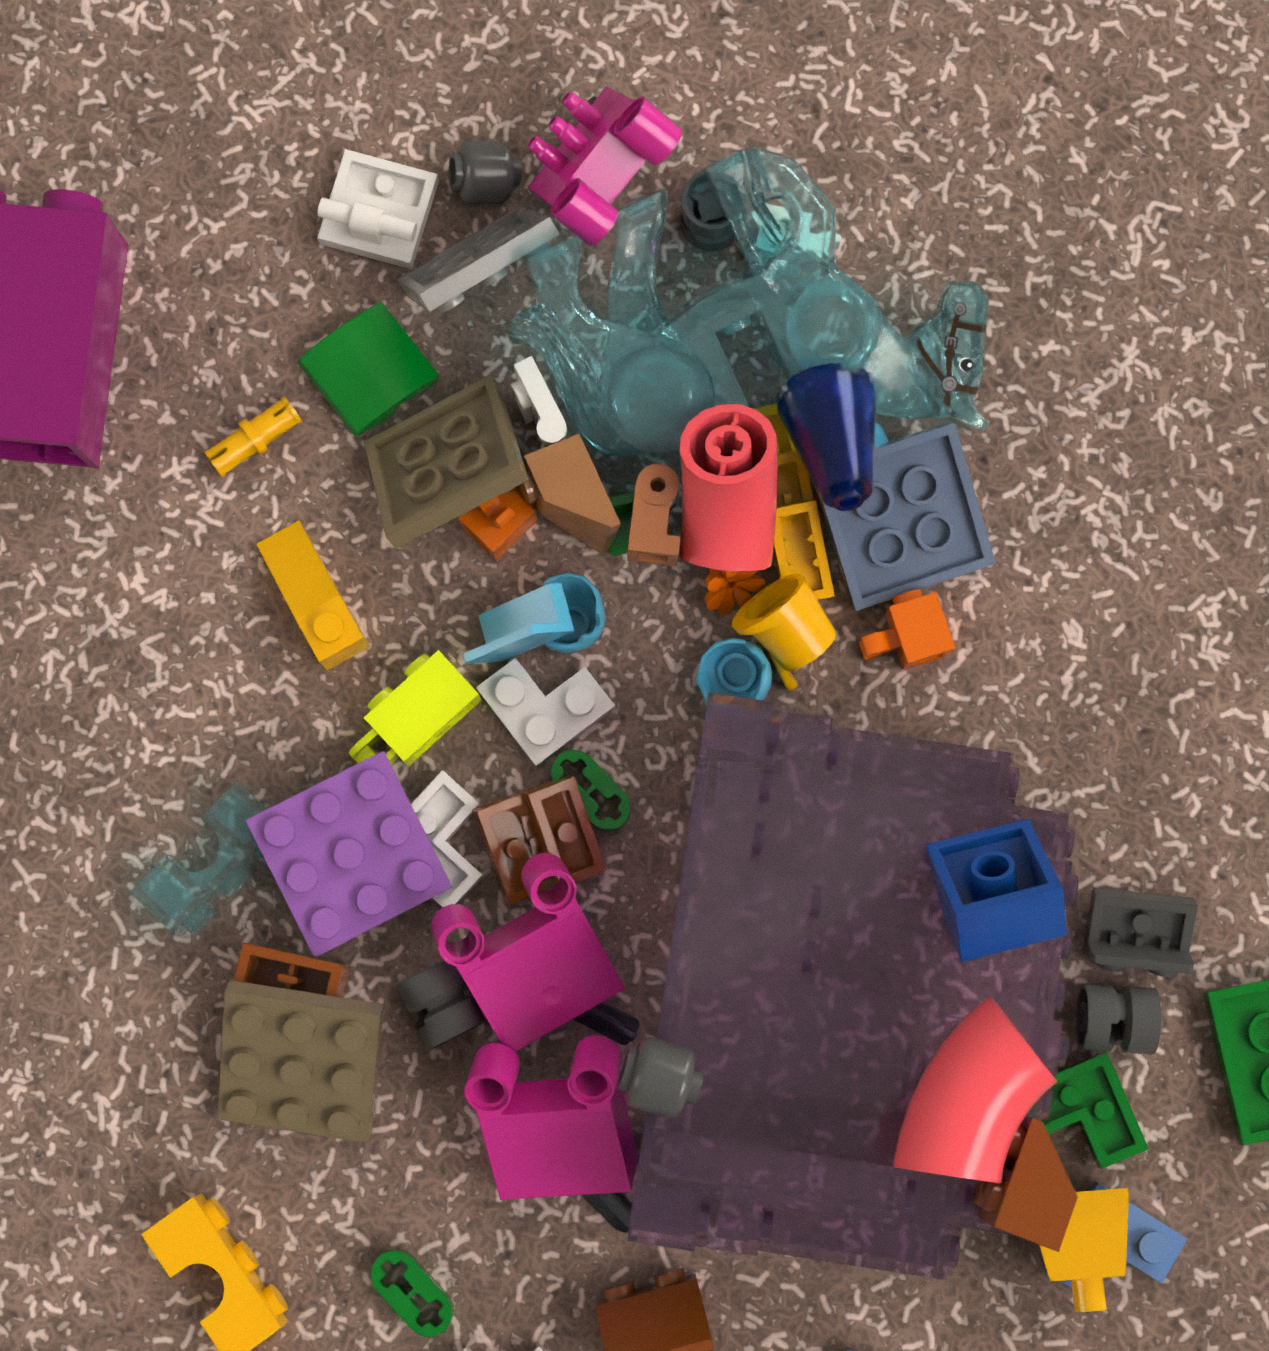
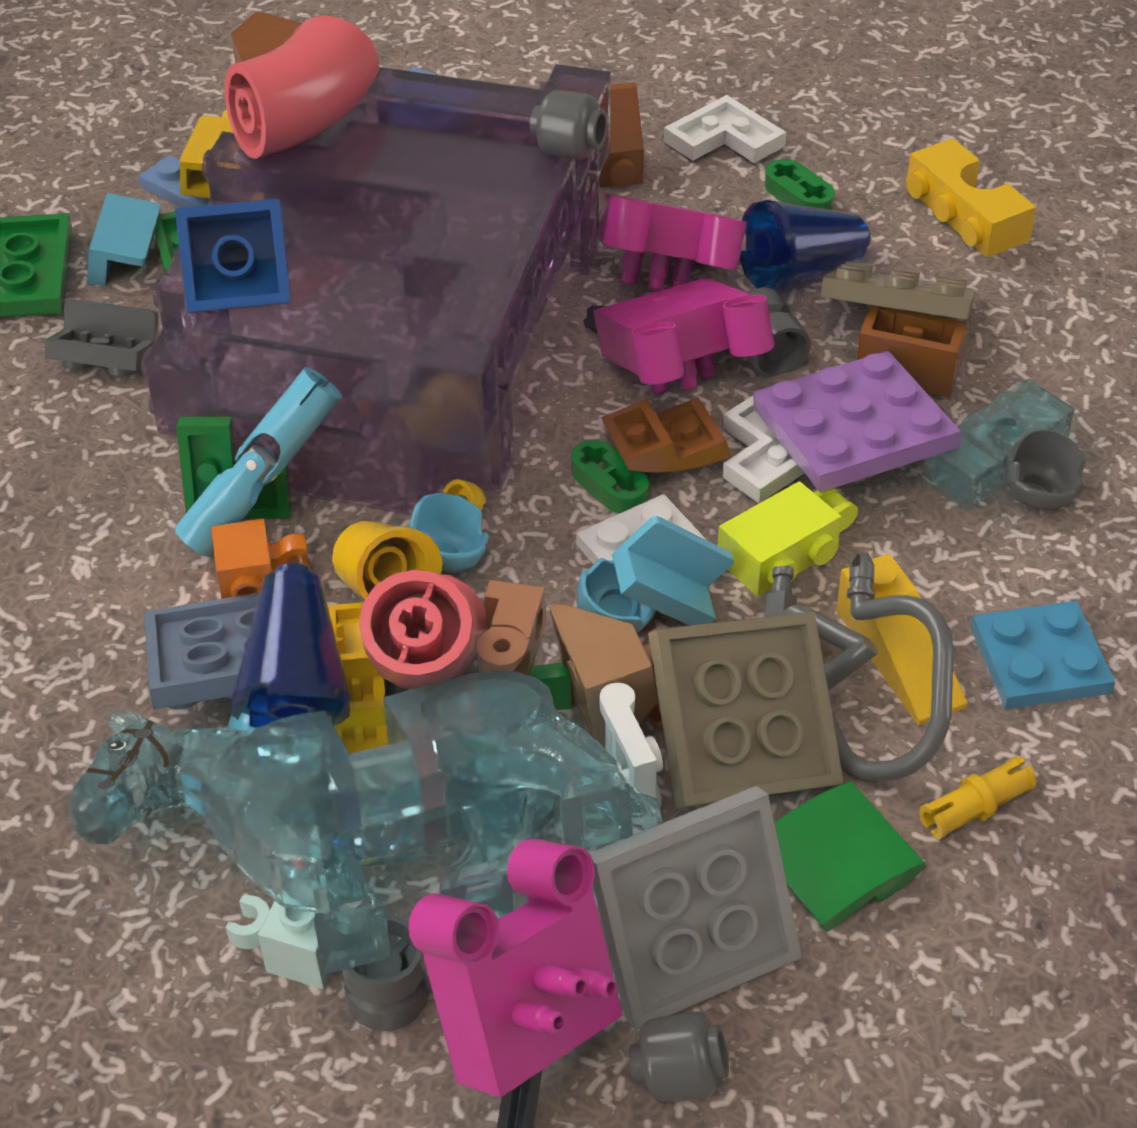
camera: 175 degrees left, 35 degrees down
(184, 811) = (1048, 461): none -> dark grey hair
(187, 604) = (1042, 654): none -> dark azure plate
(377, 209) = (825, 1029): white plate -> none
(406, 1155) = (798, 243): none -> clear blue cone
(413, 602) = (860, 649): none -> dark grey piece
(920, 700) = (237, 489): none -> medium azure piece
(969, 726) = (209, 450): none -> green plate
(1119, 1019) = (132, 280): dark grey wheel -> none
(1167, 1106) = (121, 235): none -> medium azure panel

